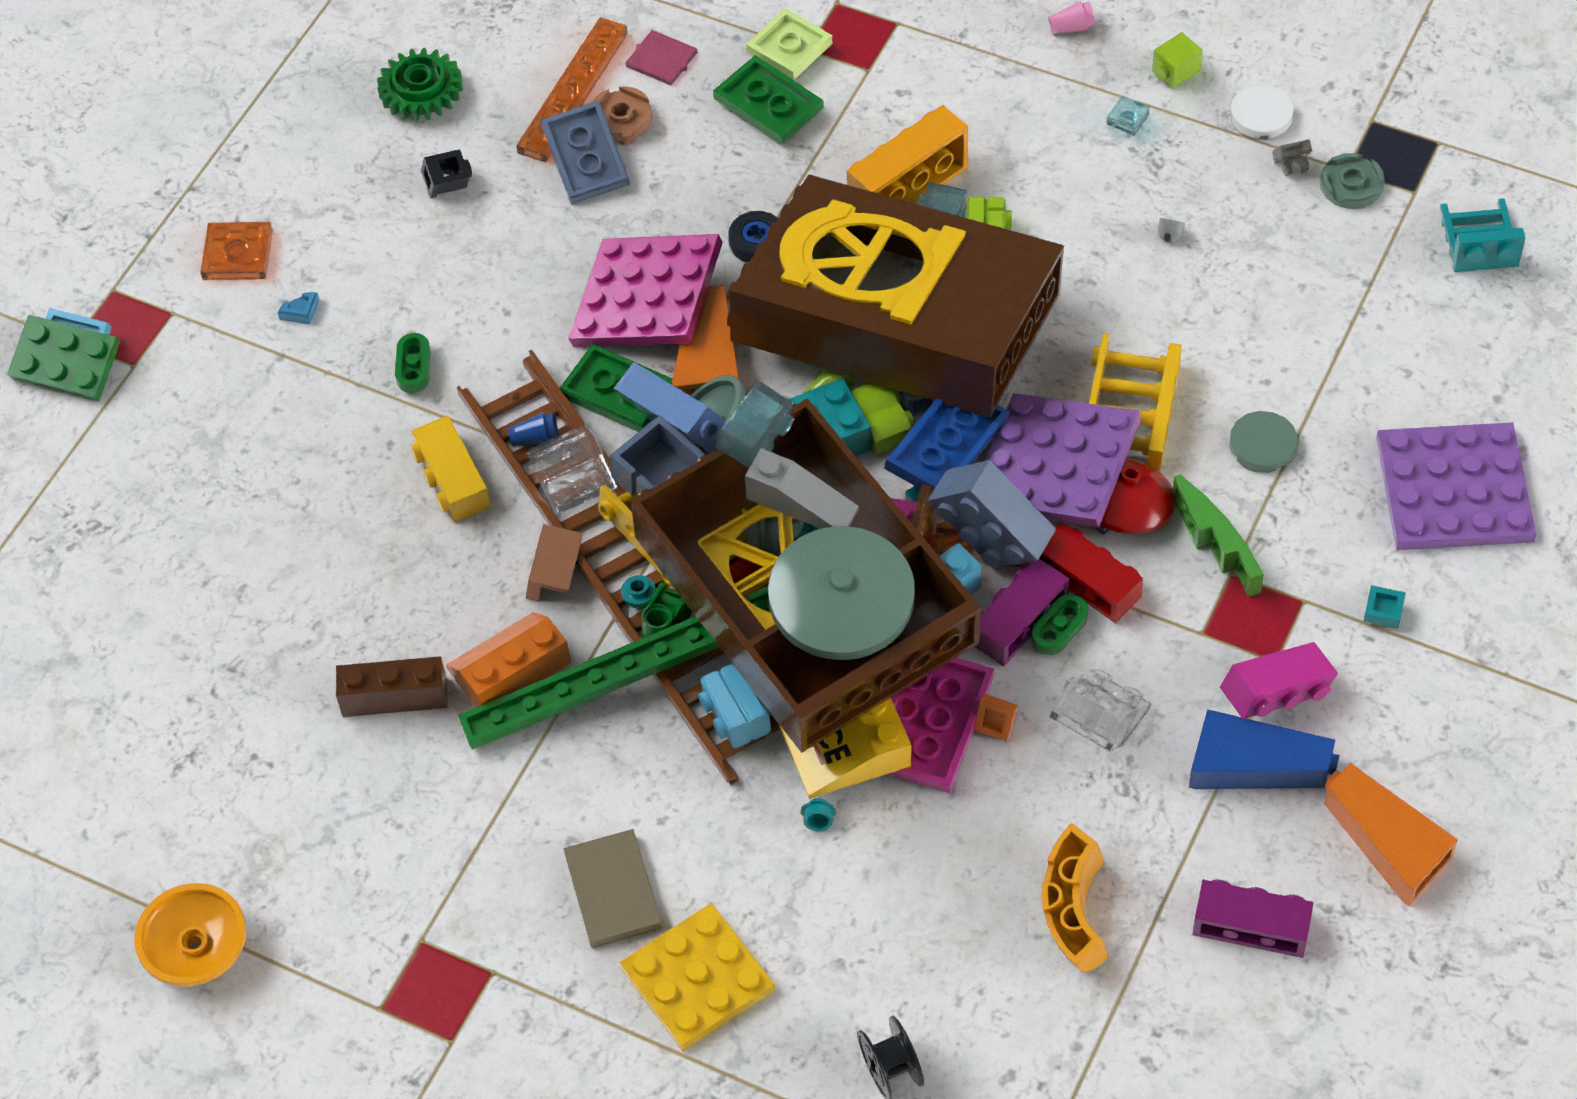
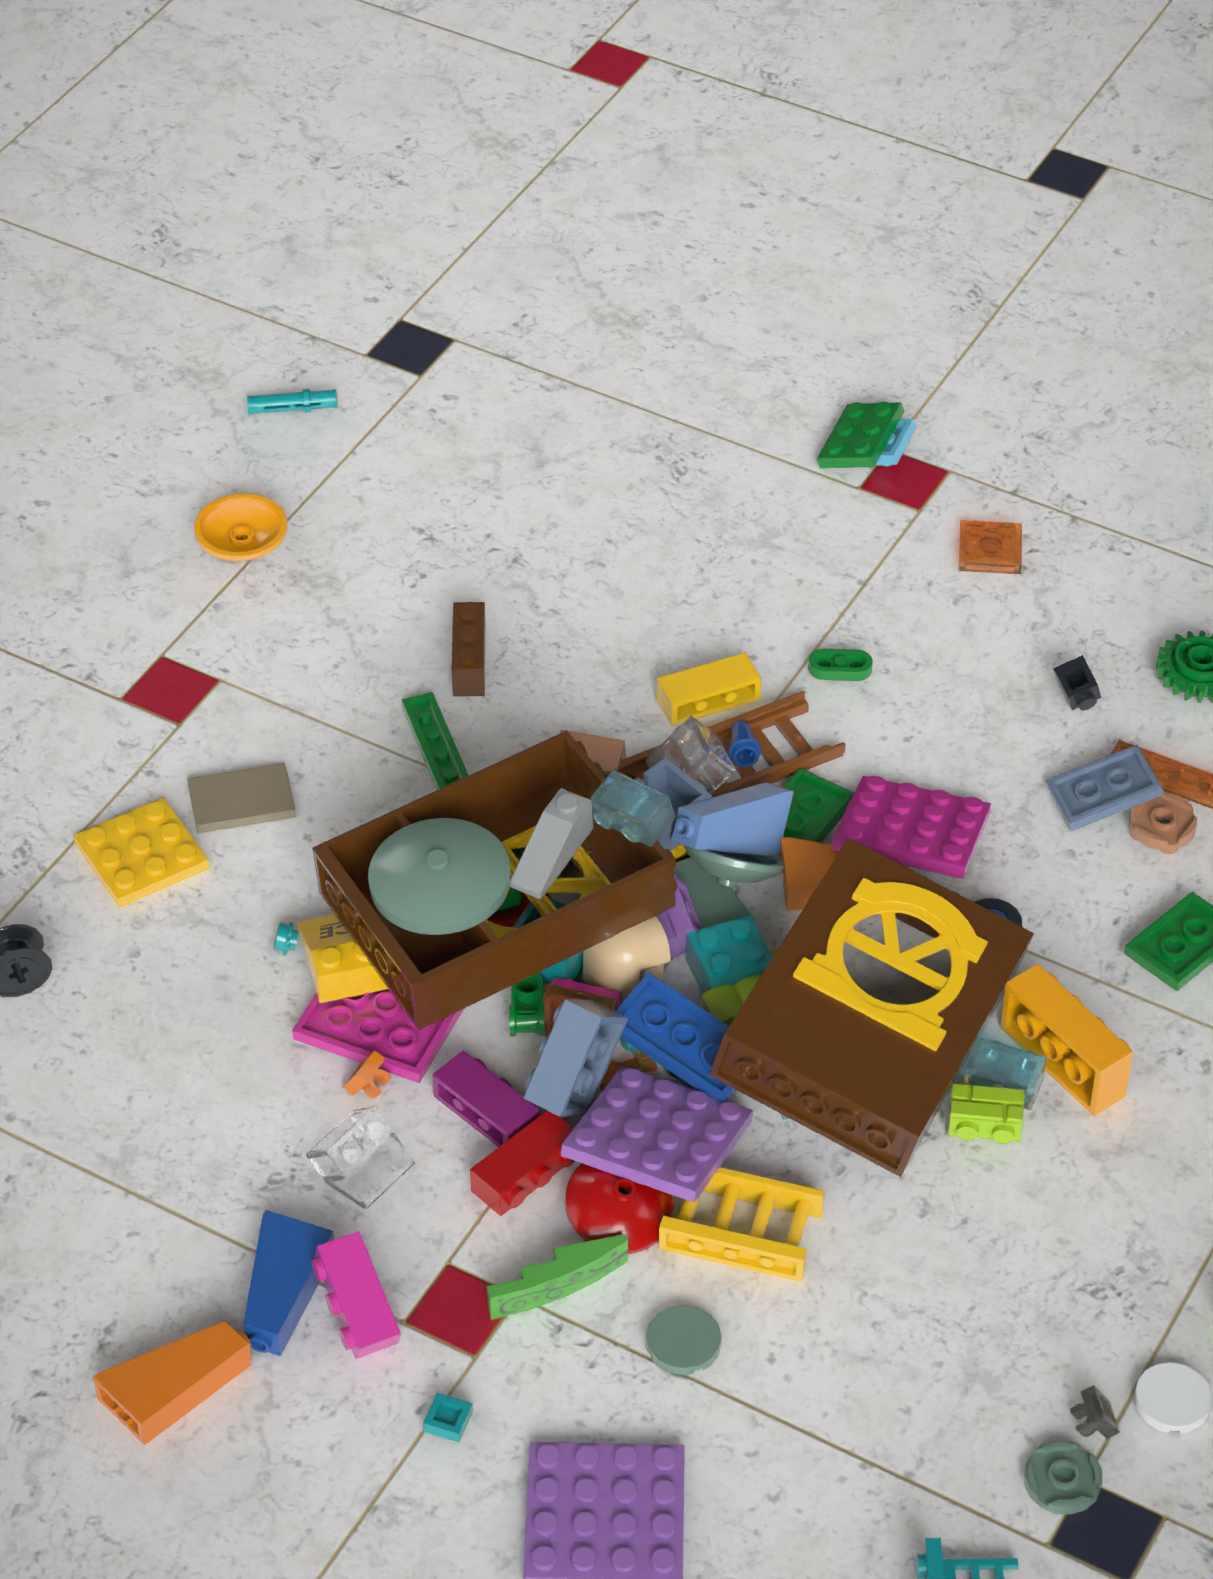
camera: 90 degrees right, 10 degrees down
(300, 309) = (917, 592): dark azure tile -> none
(511, 659) = (483, 723): orange slope -> none
(964, 567) = (526, 1047): medium azure brick -> none
(1057, 626) = (470, 1137): green plate -> none
(1064, 896) = (147, 1111): light orange brick -> none
(1128, 115) = (1161, 1260): clear light blue plate -> none
(1172, 227) = (989, 1283): light grey hinge -> none
(1253, 917) = (102, 1254): magenta brick -> none

